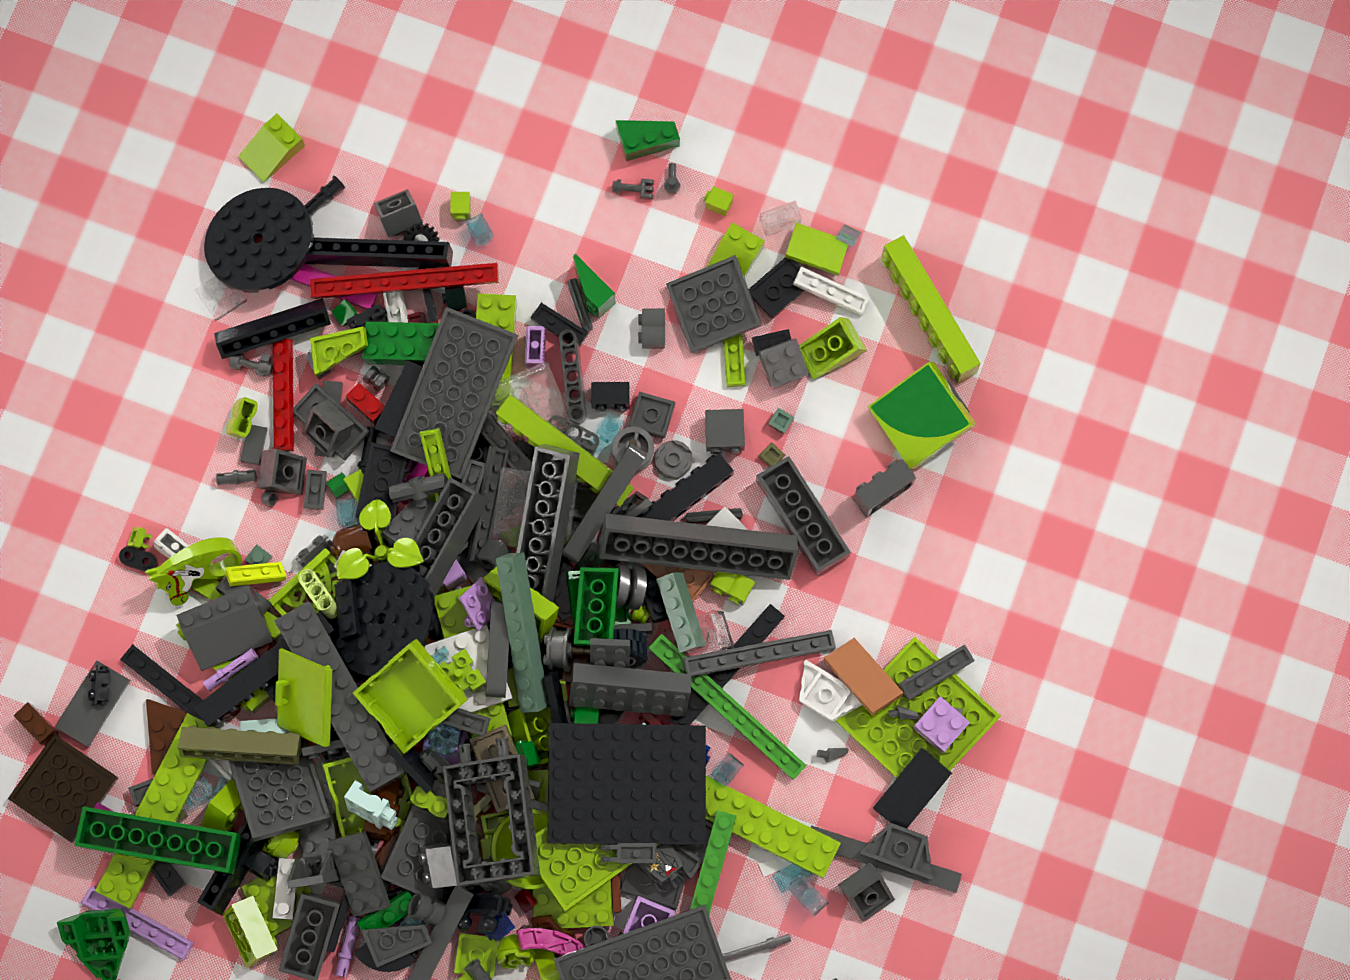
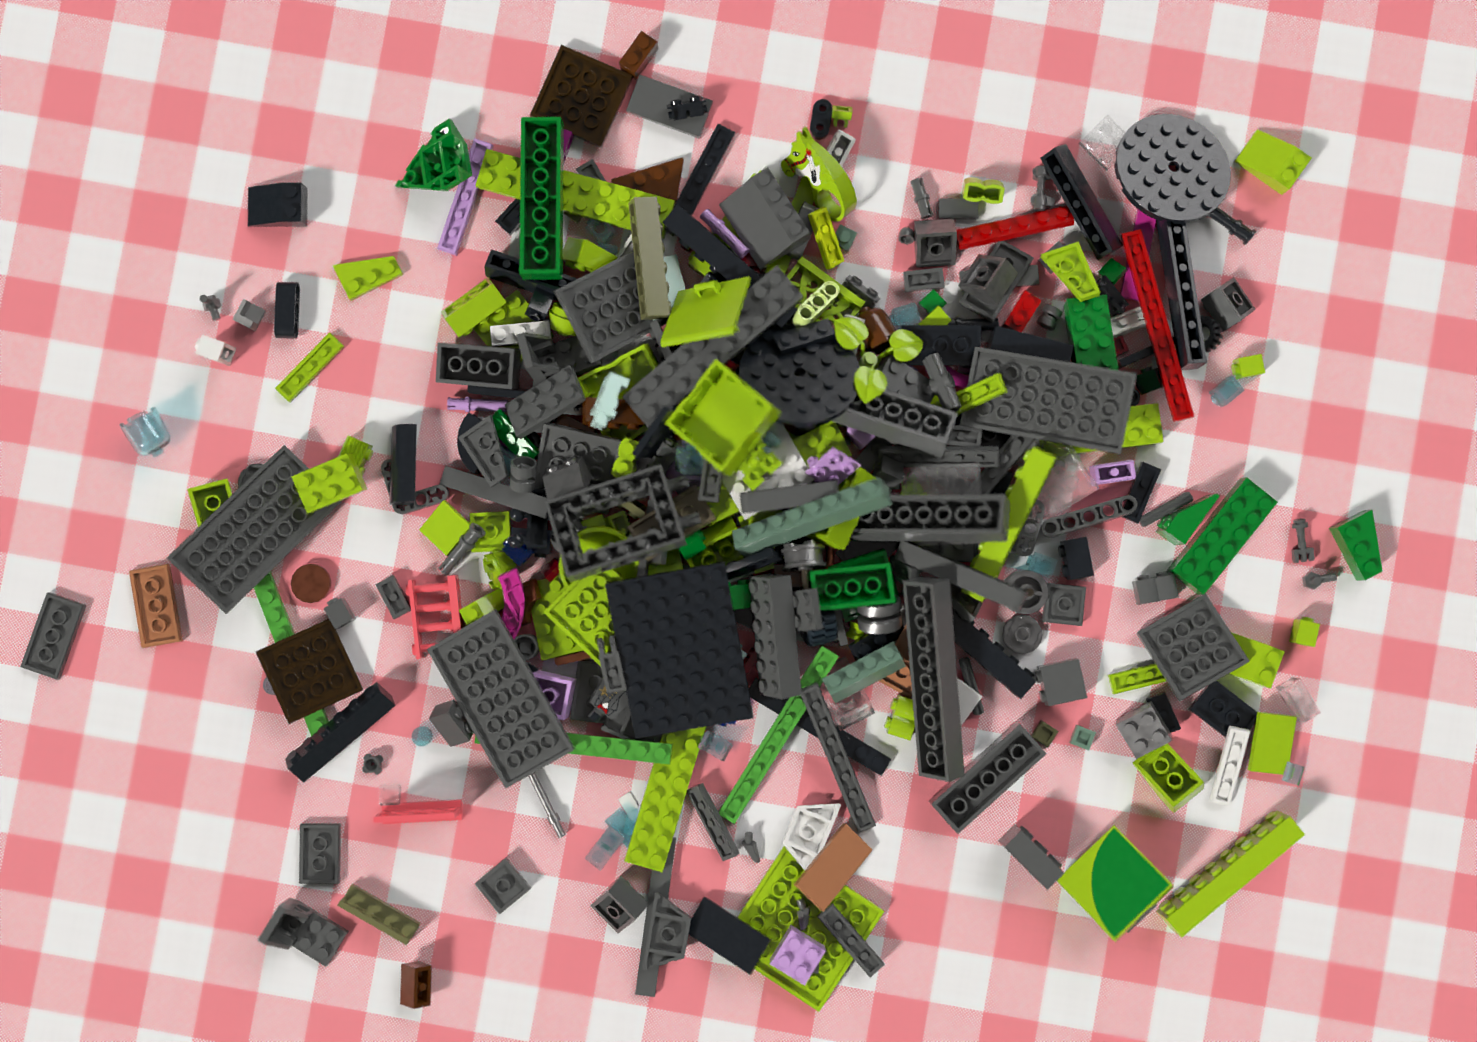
camera: 80 degrees right, 10 degrees up
(614, 258) = (1222, 536): none -> green brick
(801, 786) = (713, 822): none -> dark grey tile

